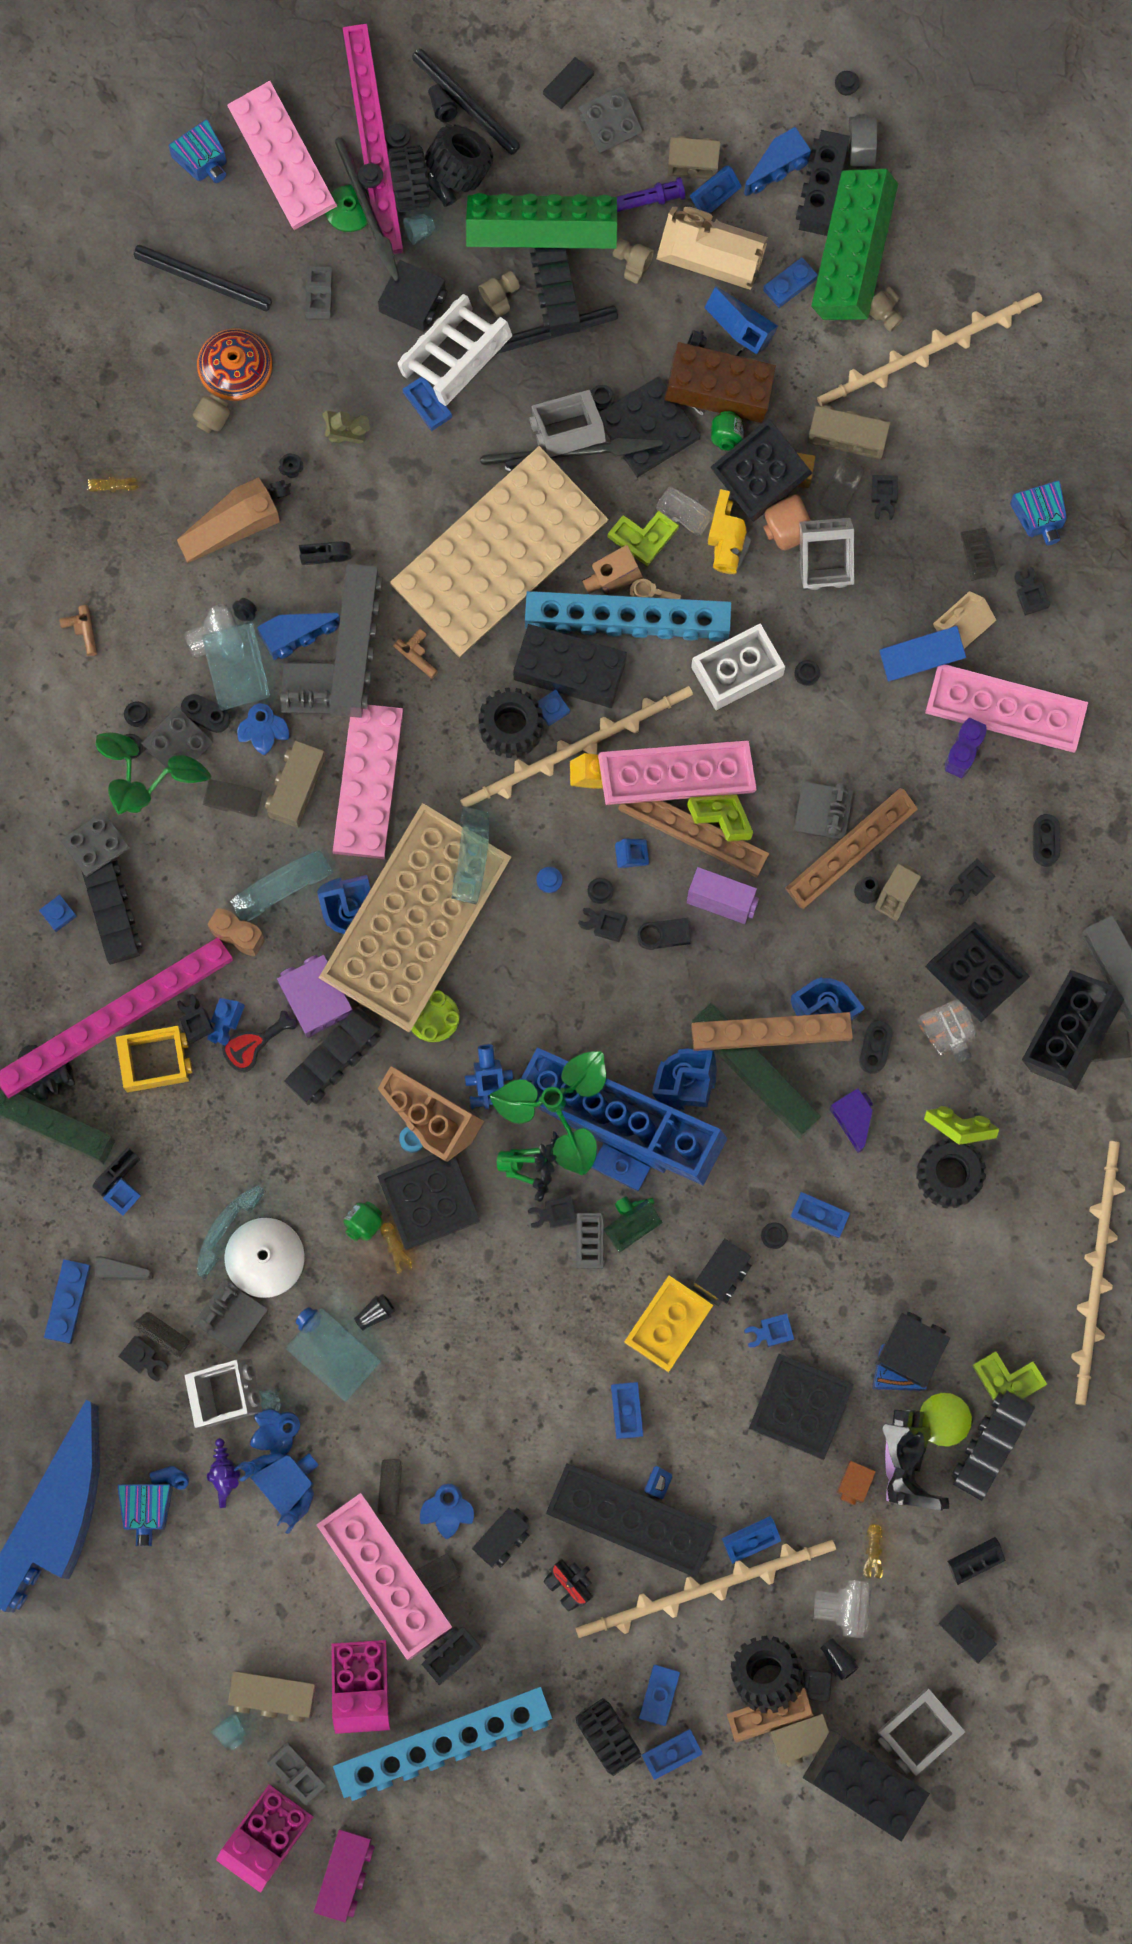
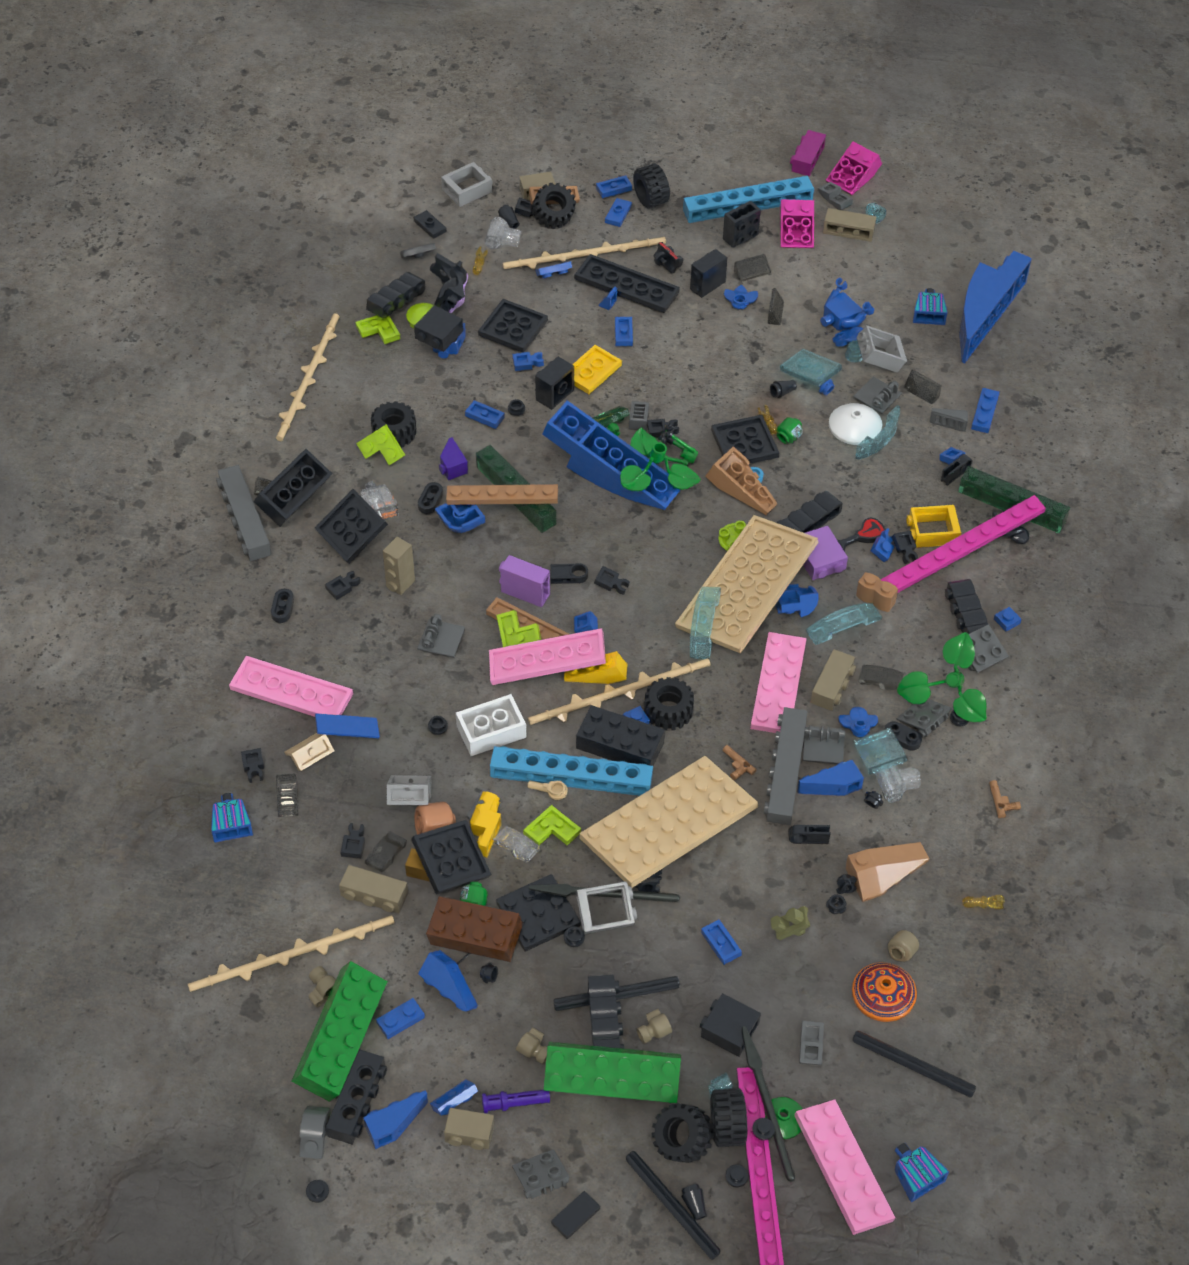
camera: 175 degrees left, 25 degrees down
(136, 714) = (956, 737): black plate -> none
(140, 1356) = (936, 376): black plate -> none
(170, 1475) = (913, 324): blue arm -> none
(222, 1473) = (881, 318): dark purple piece -> none
(384, 1576) = (781, 265): bright pink plate -> none
(461, 369) = (690, 954): white fence -> none
(487, 1077) = (700, 495): blue piece -> none
(549, 879) = (648, 610): blue plate -> none
(600, 890) = (611, 601): black plate -> none
(621, 571) = (577, 796): medium nougat torso -> none
(686, 1079) = (570, 483): blue brick -> none
(711, 247) = (464, 1038): tan brick -> none
(851, 848) = (422, 611): medium nougat plate -> none
(855, 1483) = (485, 288): dark orange brick -> none
(864, 894) = (418, 584): black cone -> none
(866, 1785) = (504, 158): black brick -> none
(965, 747) = (329, 662): dark purple brick -> none

